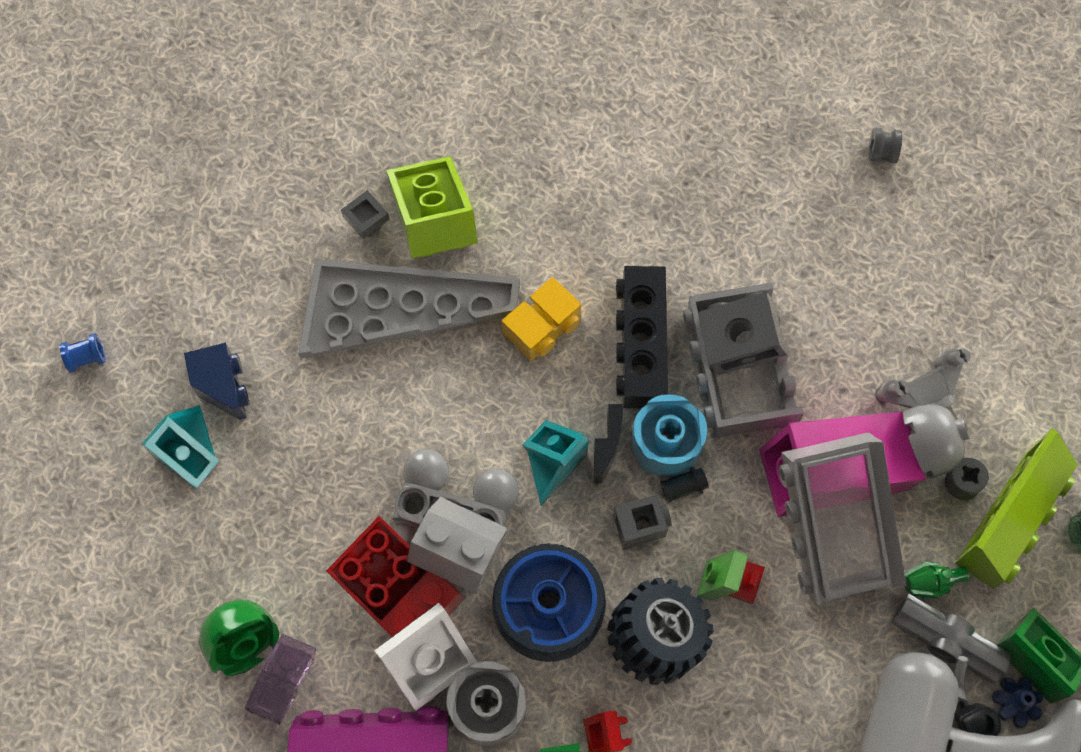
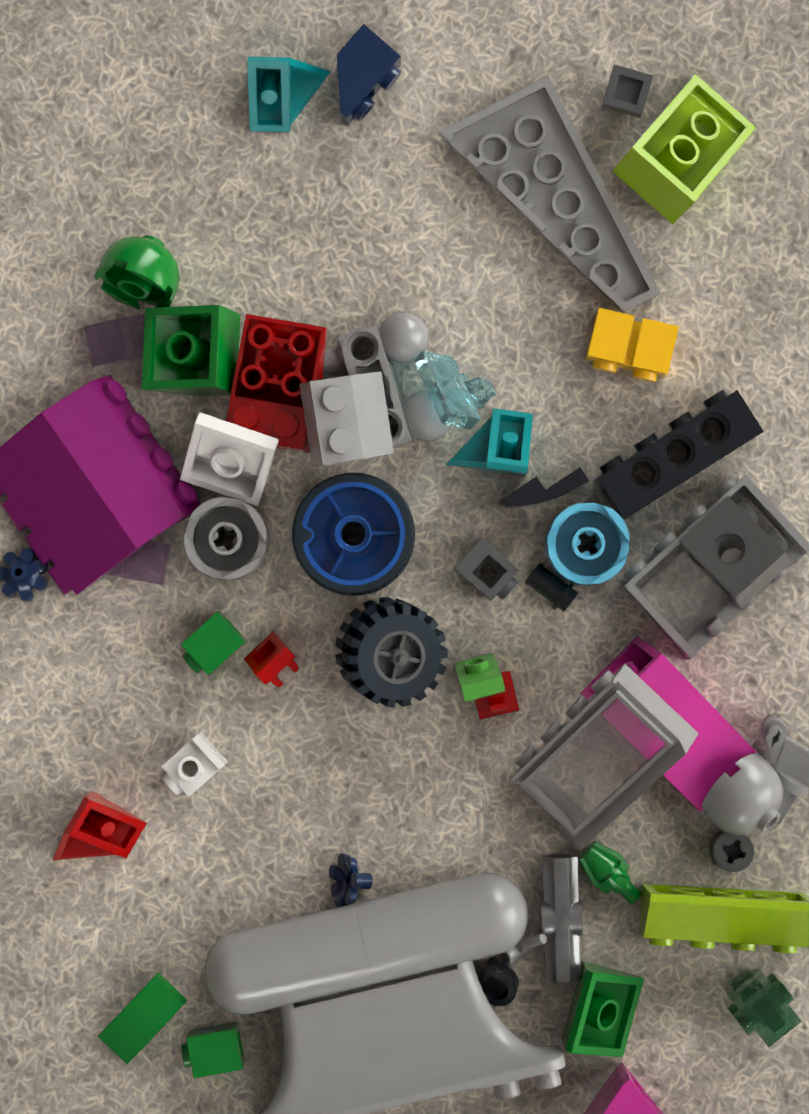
camera: 60 degrees right, 20 degrees up
(322, 635) = (190, 350): none -> green slope
(496, 459) = (452, 392): none -> clear light blue hinge
(1018, 701) = (541, 1002): dark blue plant -> none

